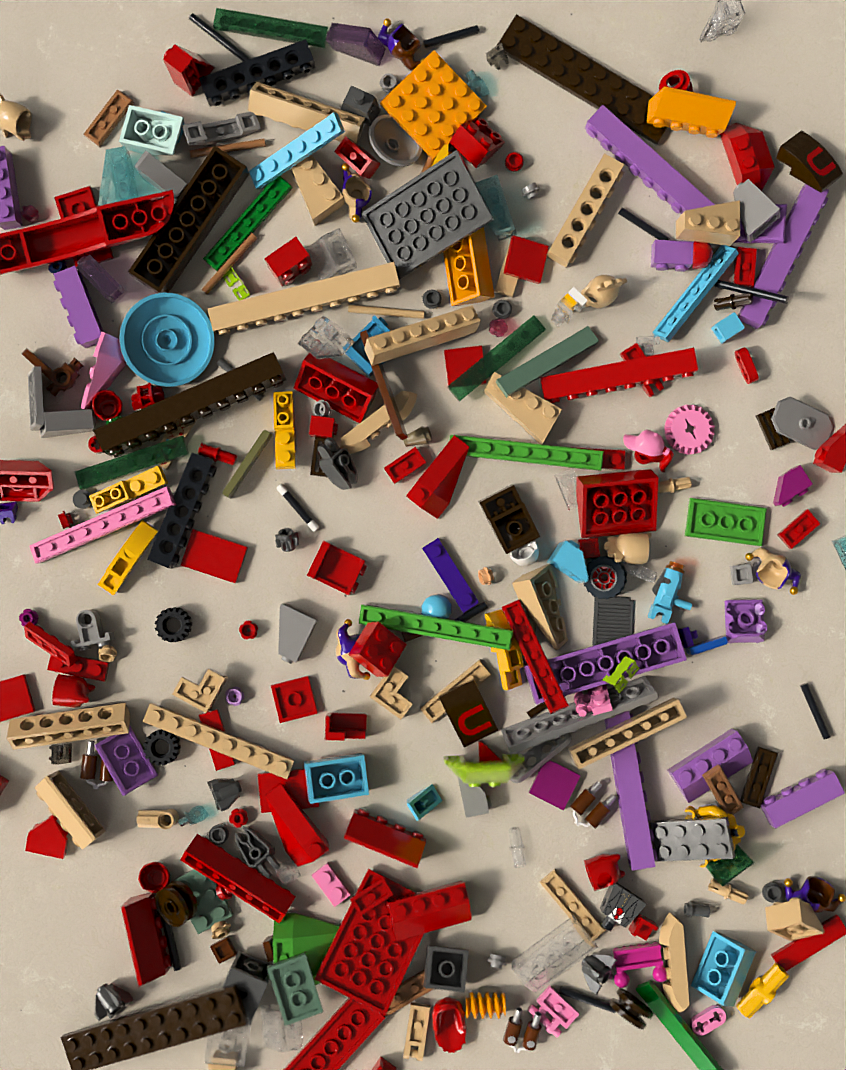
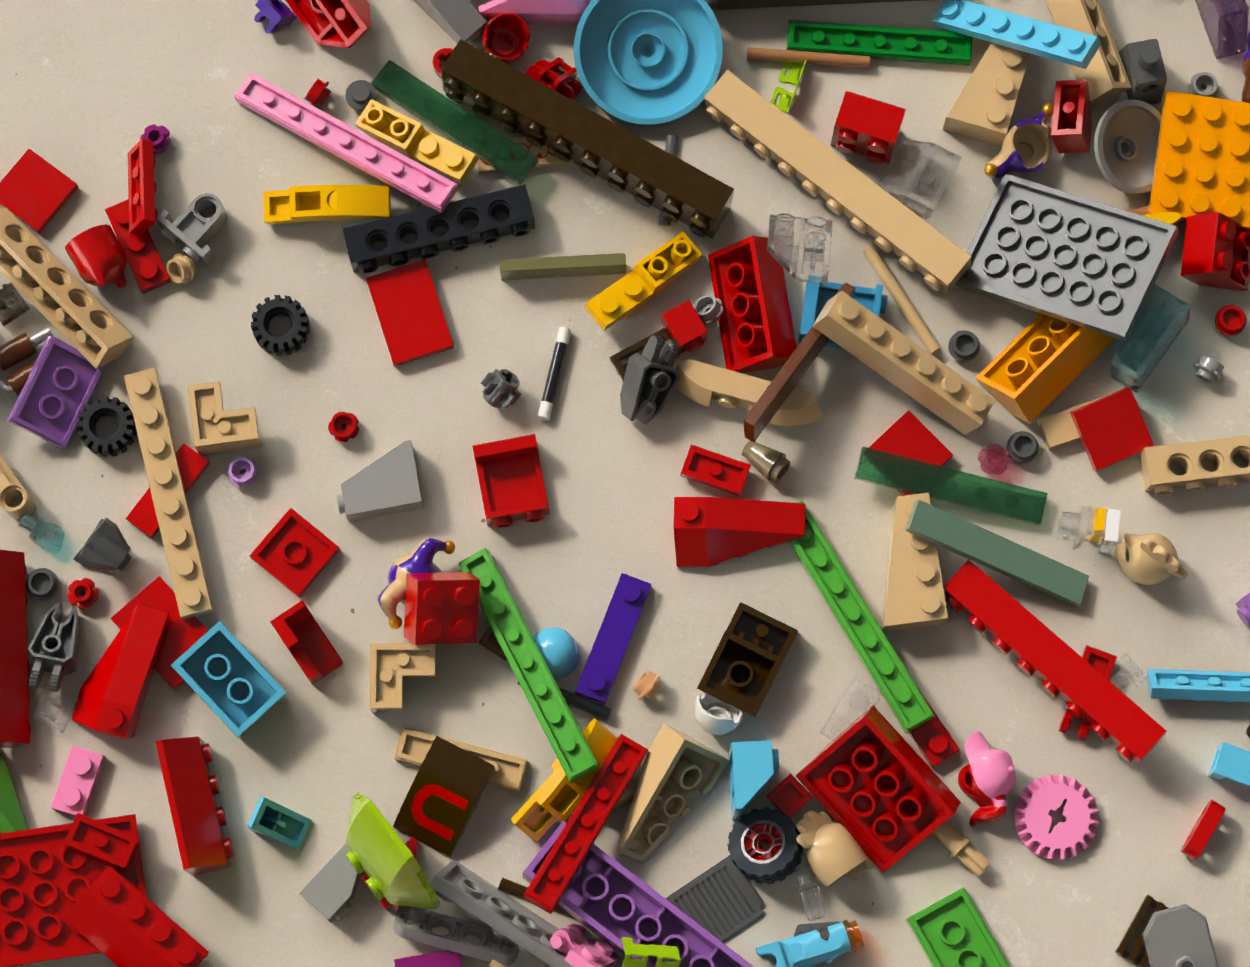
camera: 55 degrees right, 10 degrees down
(217, 454) = (547, 220): red axle -> none

